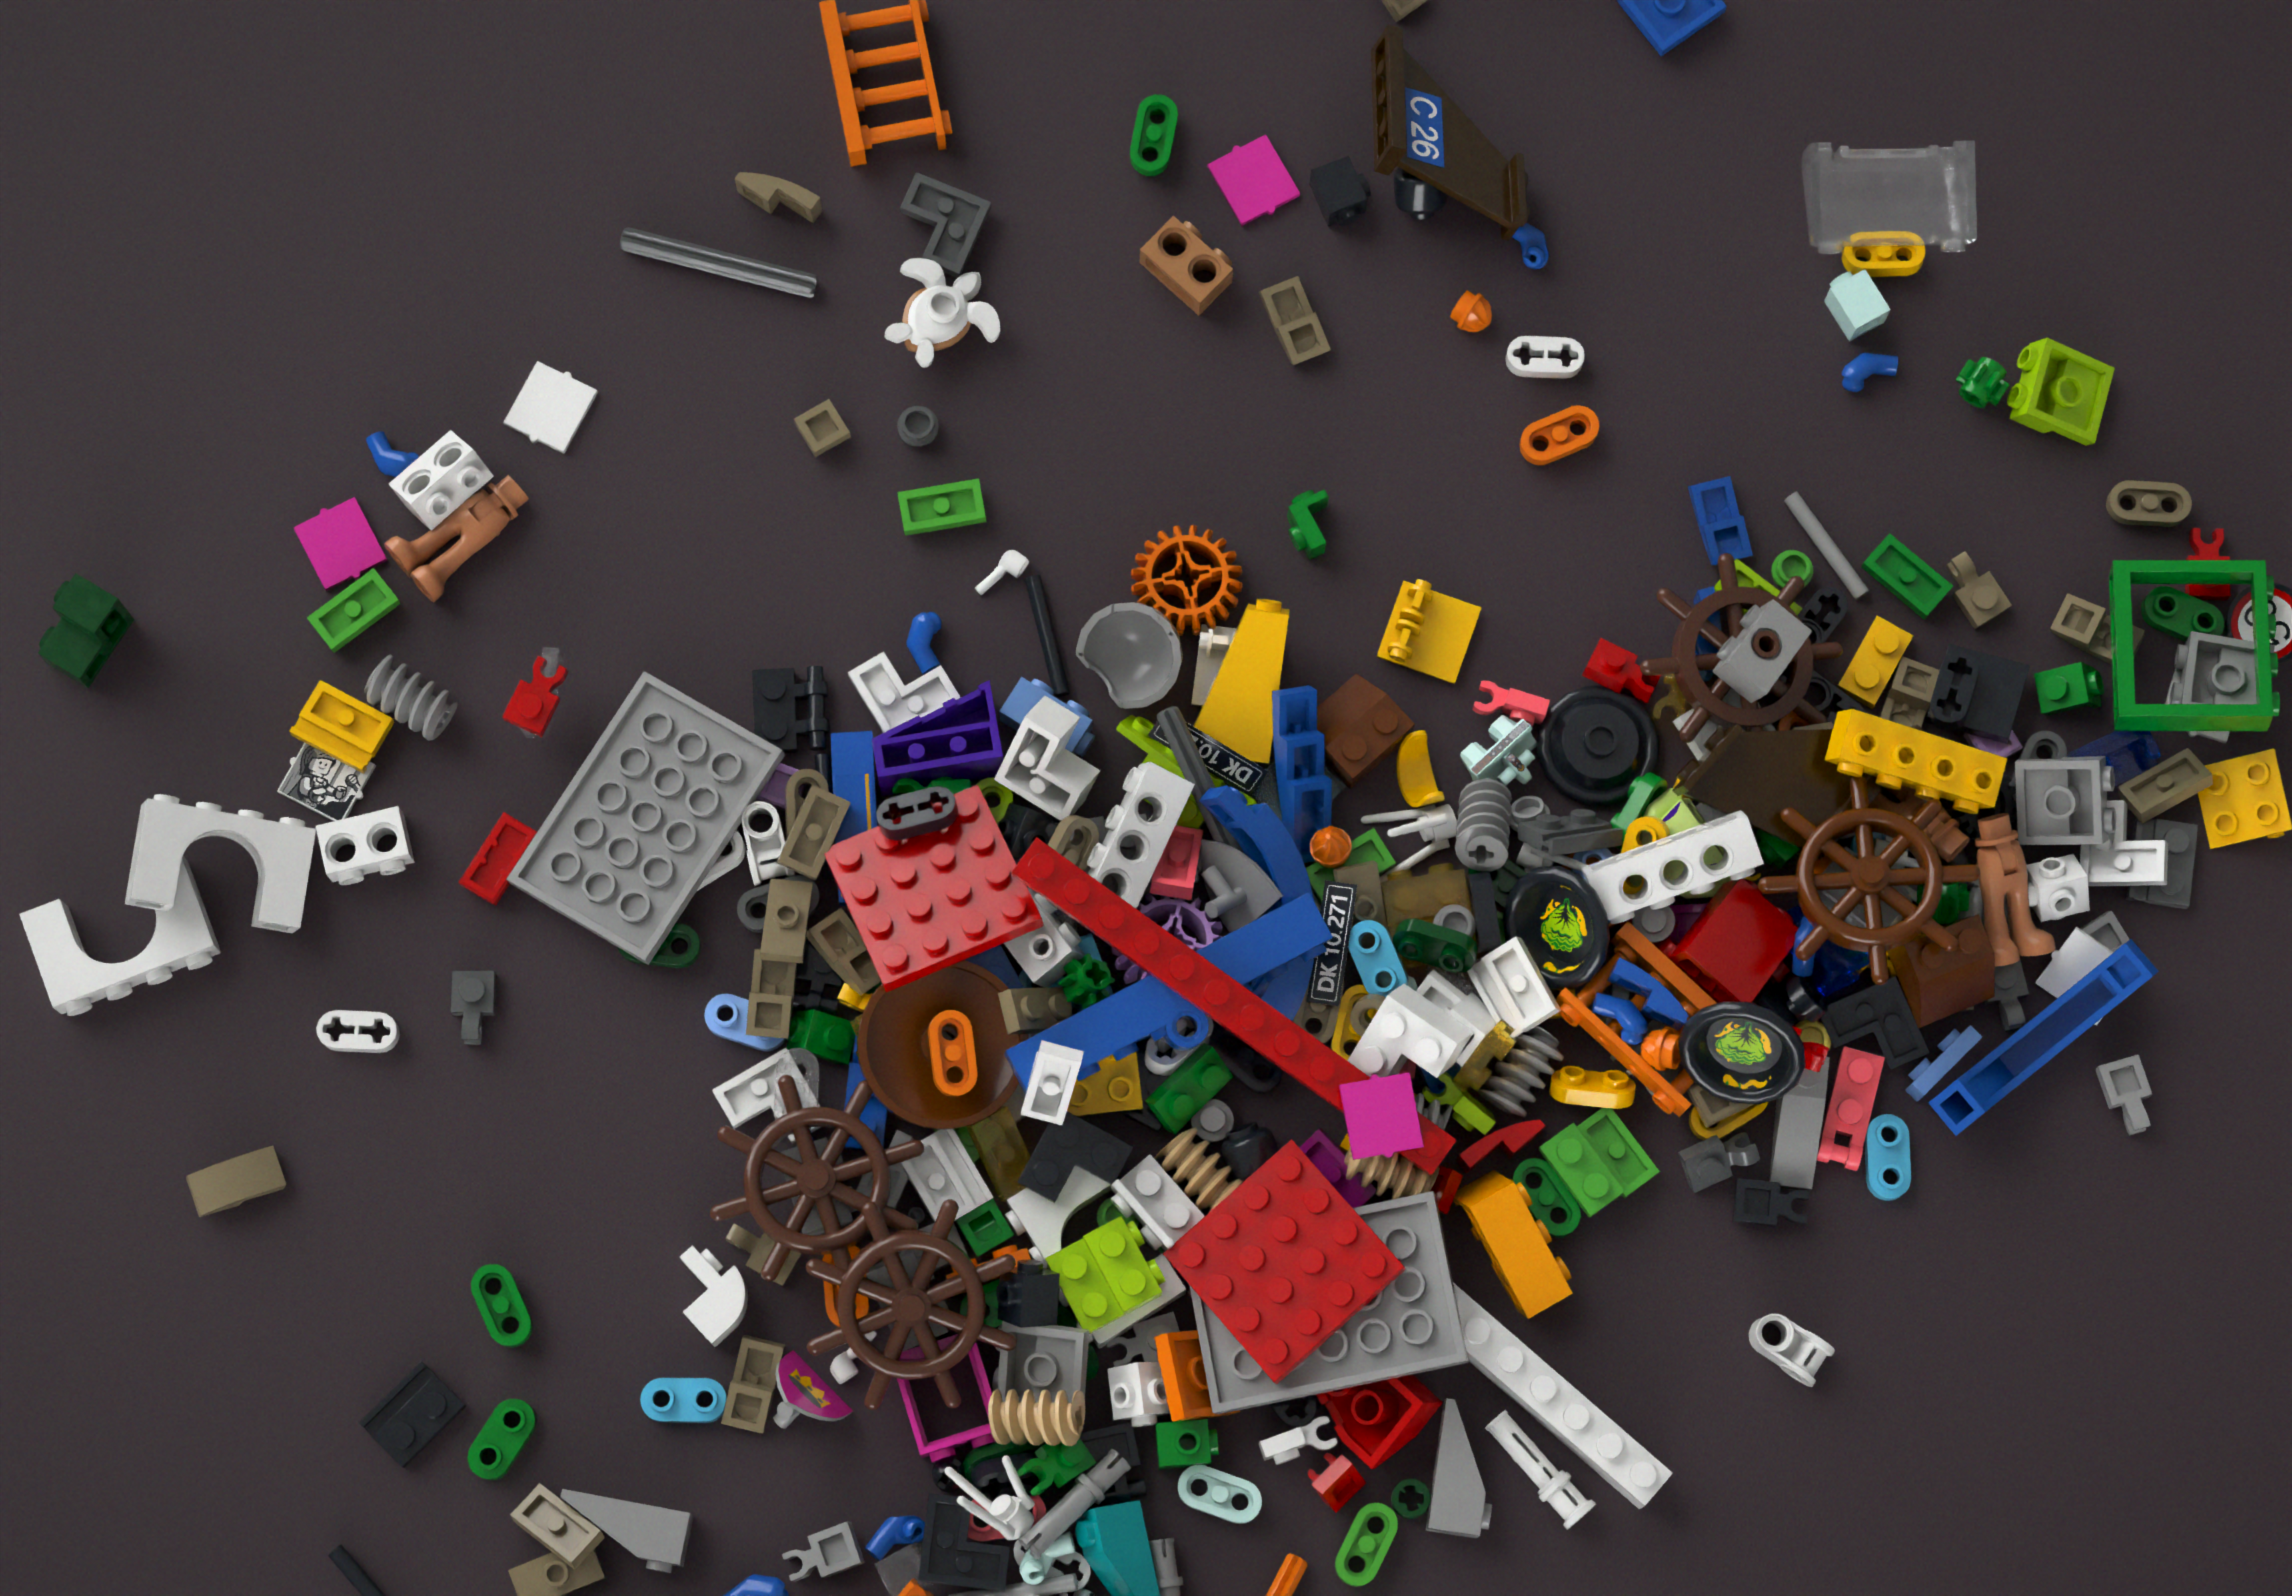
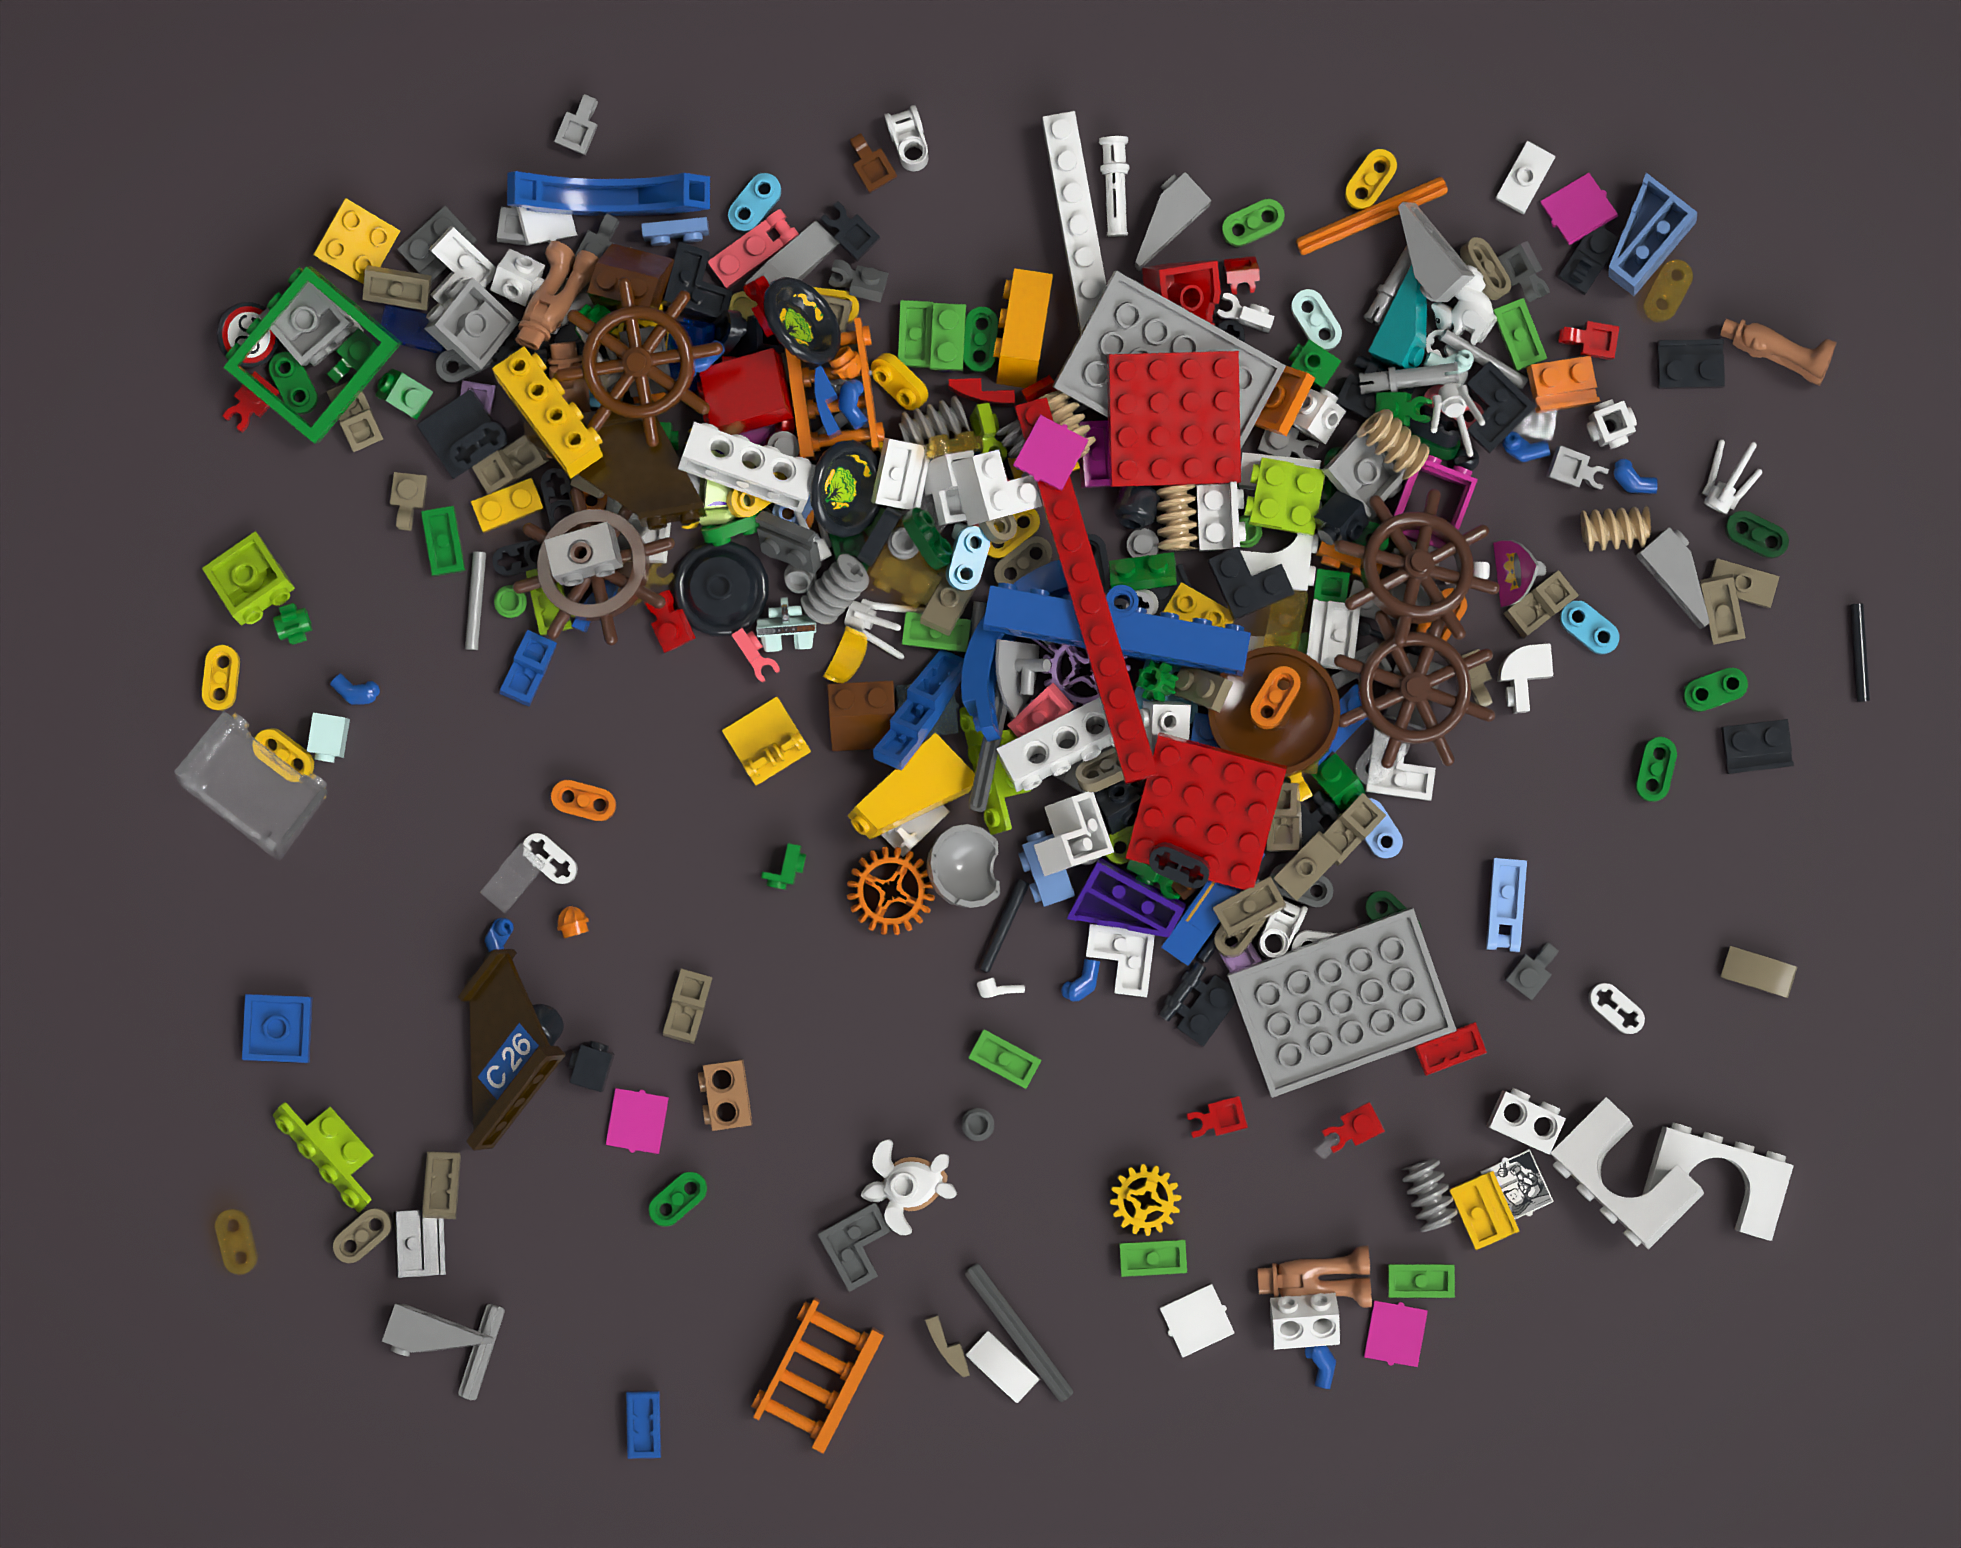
camera: 140 degrees left, 10 degrees up
(87, 631) = (1599, 1395): dark green brick -> none
(553, 1049) = (1506, 903): none -> light blue plate
(641, 430) = (1153, 1258): none -> bright green plate
(678, 482) = (1140, 1214): none -> yellow gear
(679, 617) = (1223, 1116): none -> red plate
(708, 216) = (1002, 1367): none -> white slope
(735, 1521) = (1616, 527): none -> tan piece
(822, 428) = (1039, 1169): dark tan plate -> none
(1051, 1082) = (1234, 627): white slope -> none
(1220, 760) = (963, 757): black sticker -> none
(1329, 967) = (975, 599): black sticker -> none
(1330, 847) = (939, 650): orange plate -> none
(1419, 1489) = (1215, 229): dark green bush -> none
(1564, 308) = (513, 878): none -> clear slope
(1800, 1286) = (872, 167): none -> reddish brown plate
(2009, 280) = (218, 677): none -> yellow plate
(2146, 503) = (254, 468): dark tan plate -> none
(2150, 686) = (354, 354): none -> green plate

